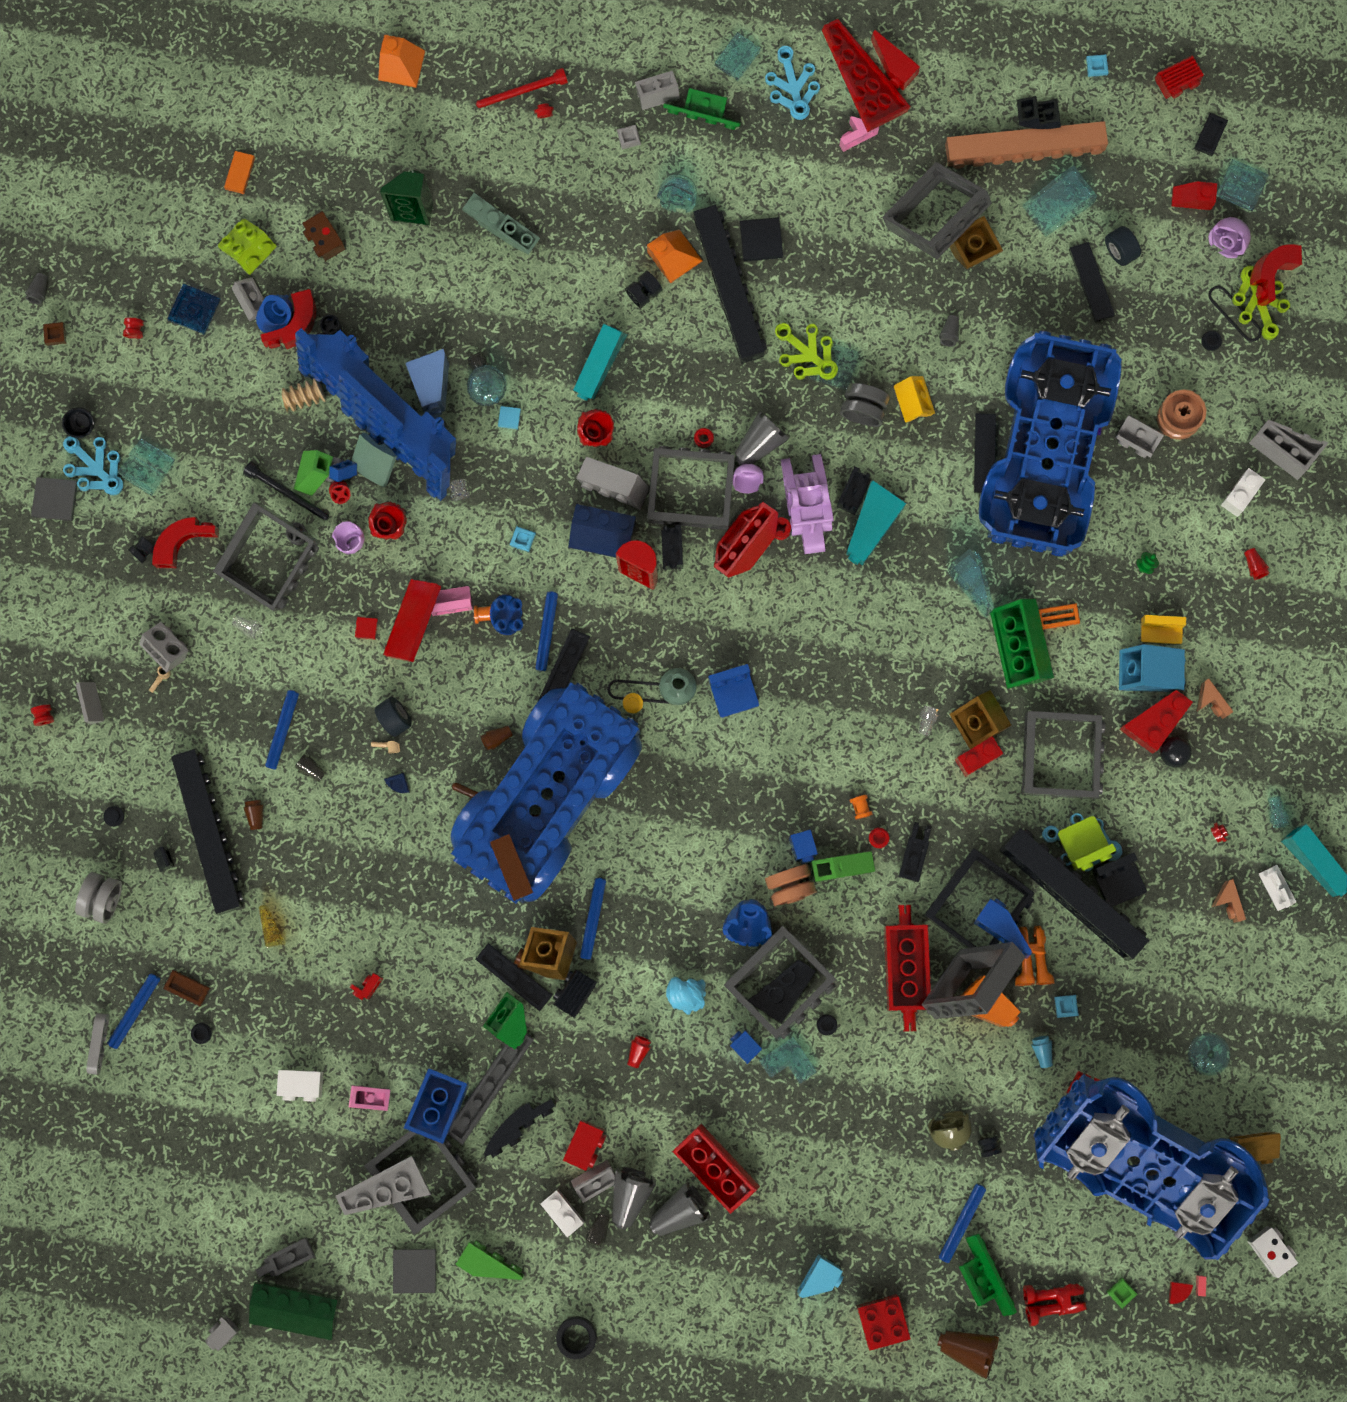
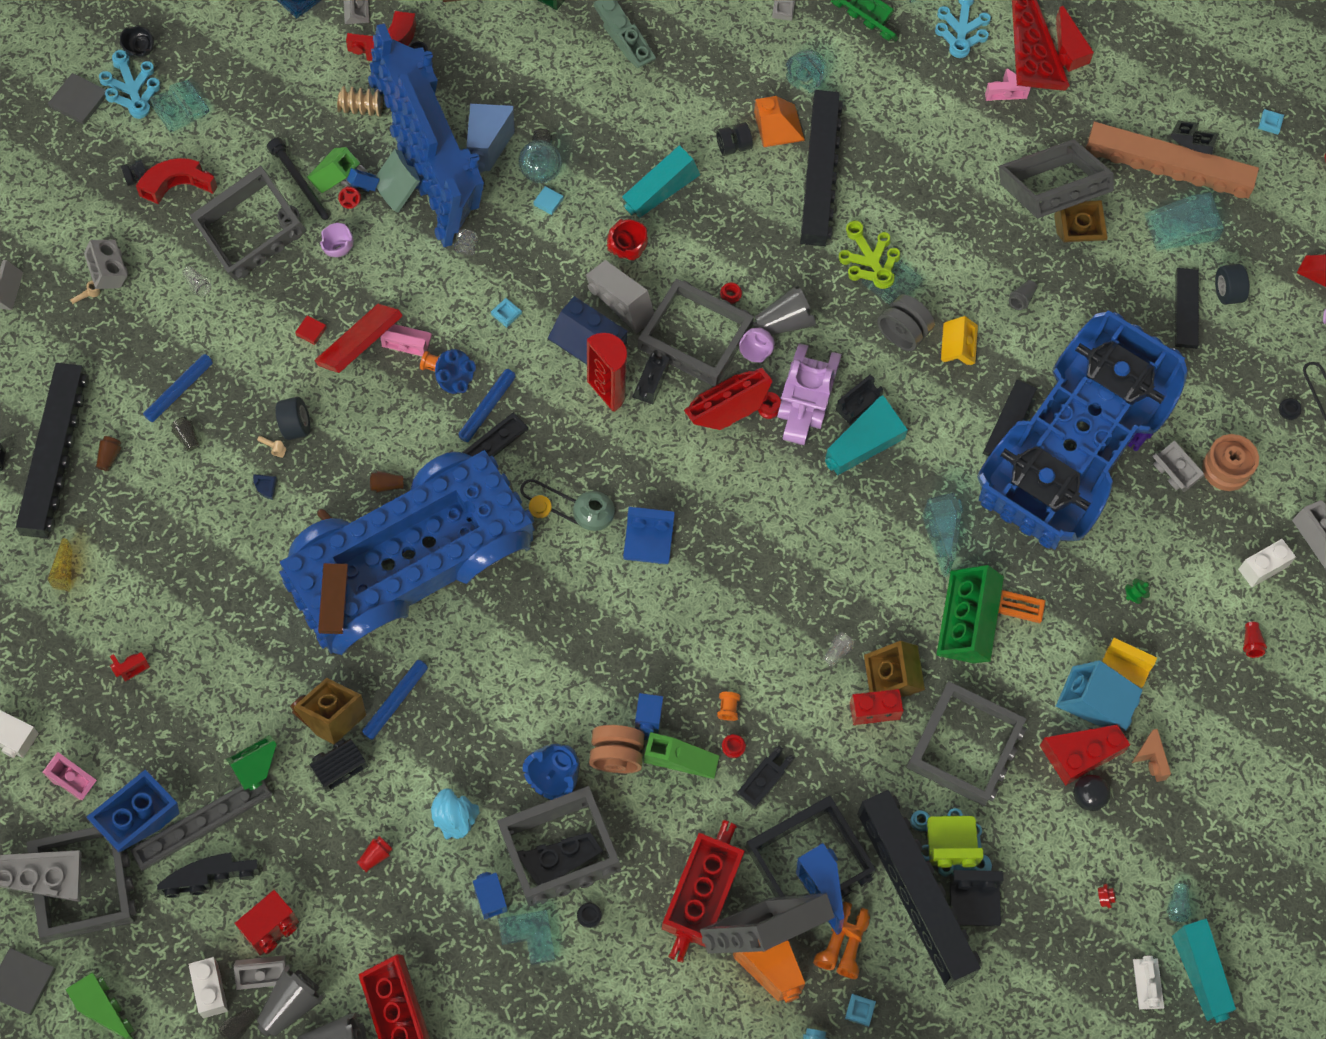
camera: 15 degrees right, 15 degrees down
(274, 313) = (371, 15): blue piece -> none
(387, 521) = (382, 240): red hair -> none
(514, 977) = (283, 723): black tile -> none
(761, 239) = (870, 142): black slope -> none
(1229, 895) = (1091, 969): nougat slope -> none

